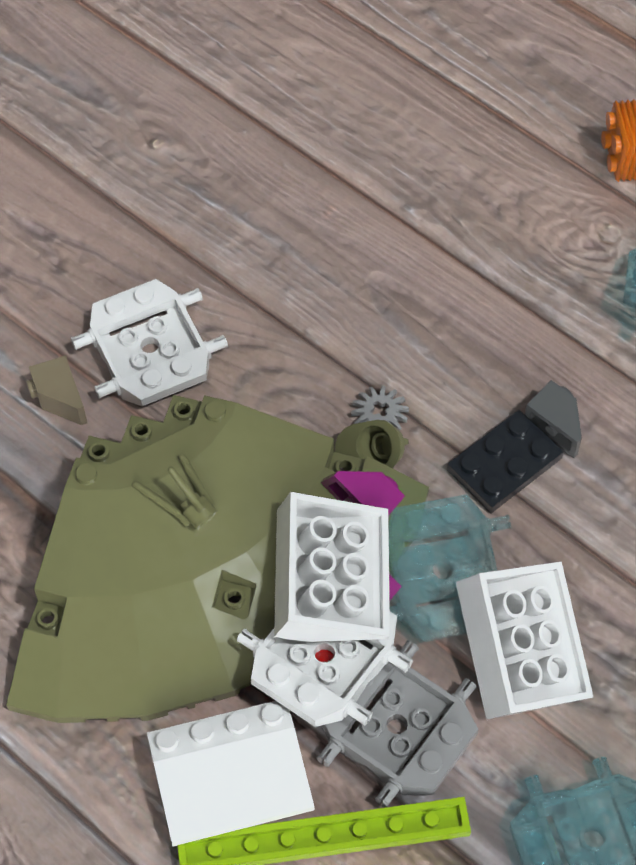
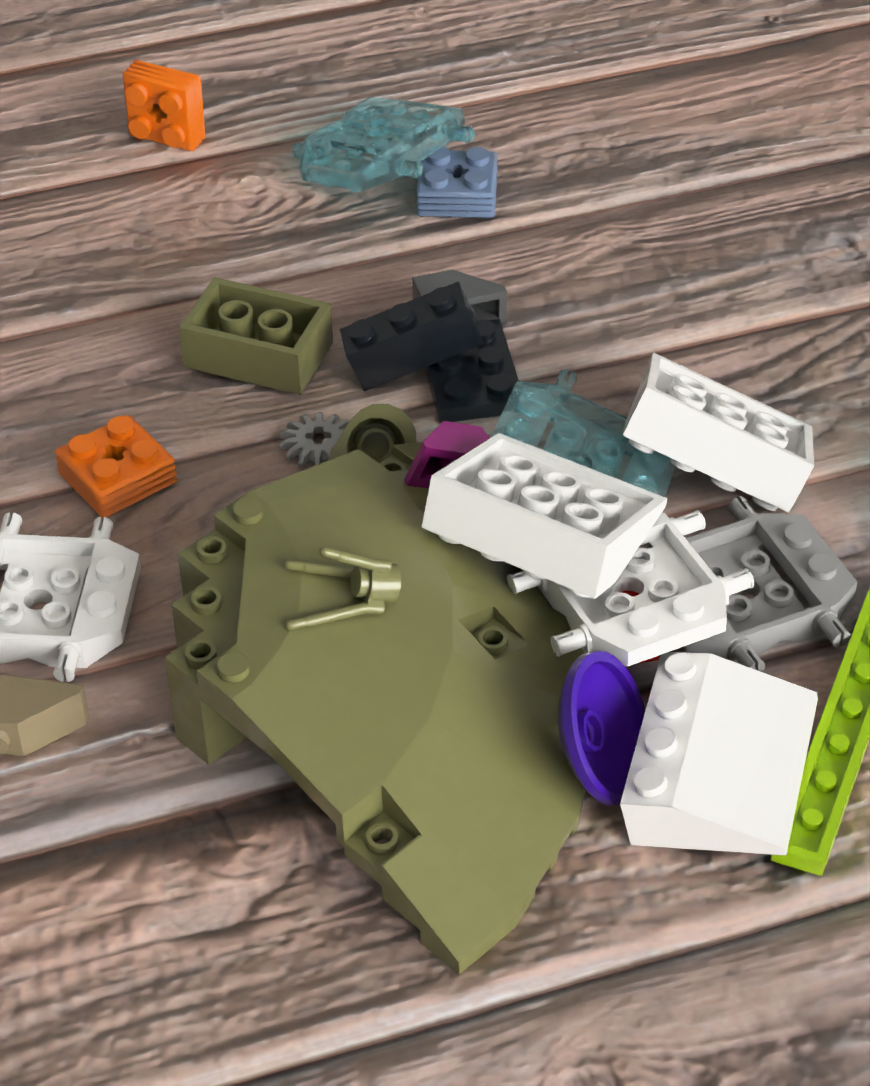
camera: 60 degrees left, 15 degrees down
(176, 700) = (600, 723): none -> dark purple dish
(297, 315) = (115, 465): none -> orange brick
(437, 324) = (256, 335): none -> olive brick
(489, 411) = (411, 336): none -> black brick

